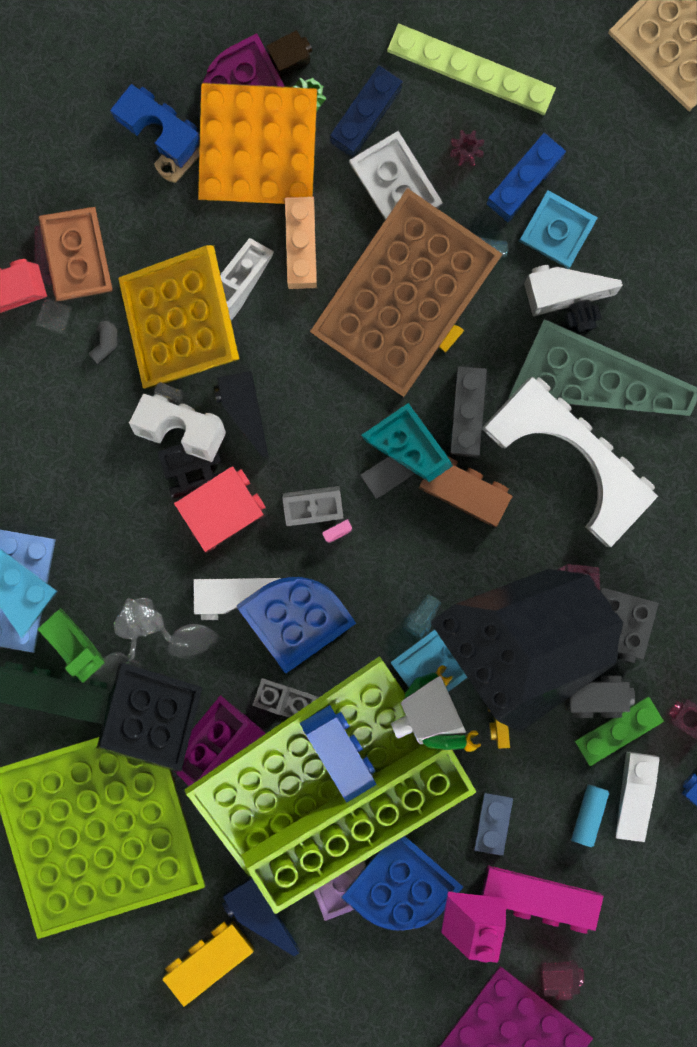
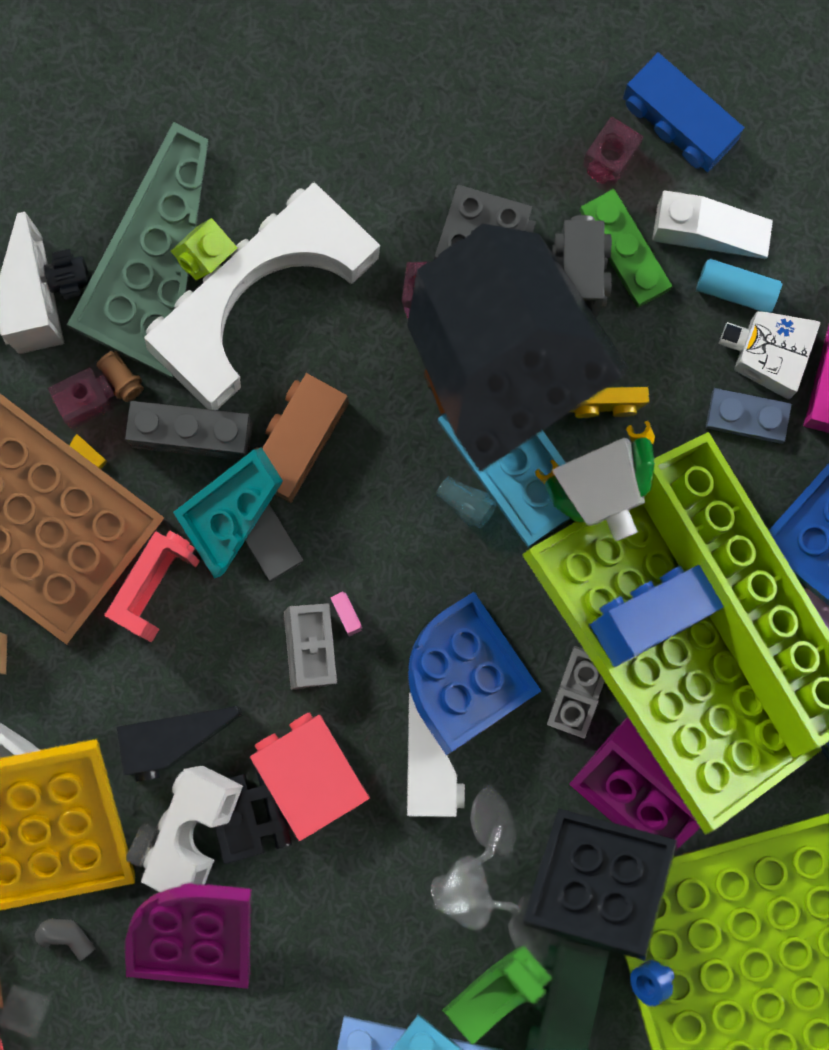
camera: 90 degrees left, 5 degrees down
(82, 754) = (652, 982): none -> blue tile
(106, 431) = (192, 936): none -> magenta plate
(334, 373) = (145, 579): none -> coral panel
(490, 333) = (82, 397): none -> clear pink brick
(508, 359) = (120, 376): none -> medium nougat pin
(543, 841) = (772, 350): none -> white torso
(602, 416) = (203, 249): none -> lime brick

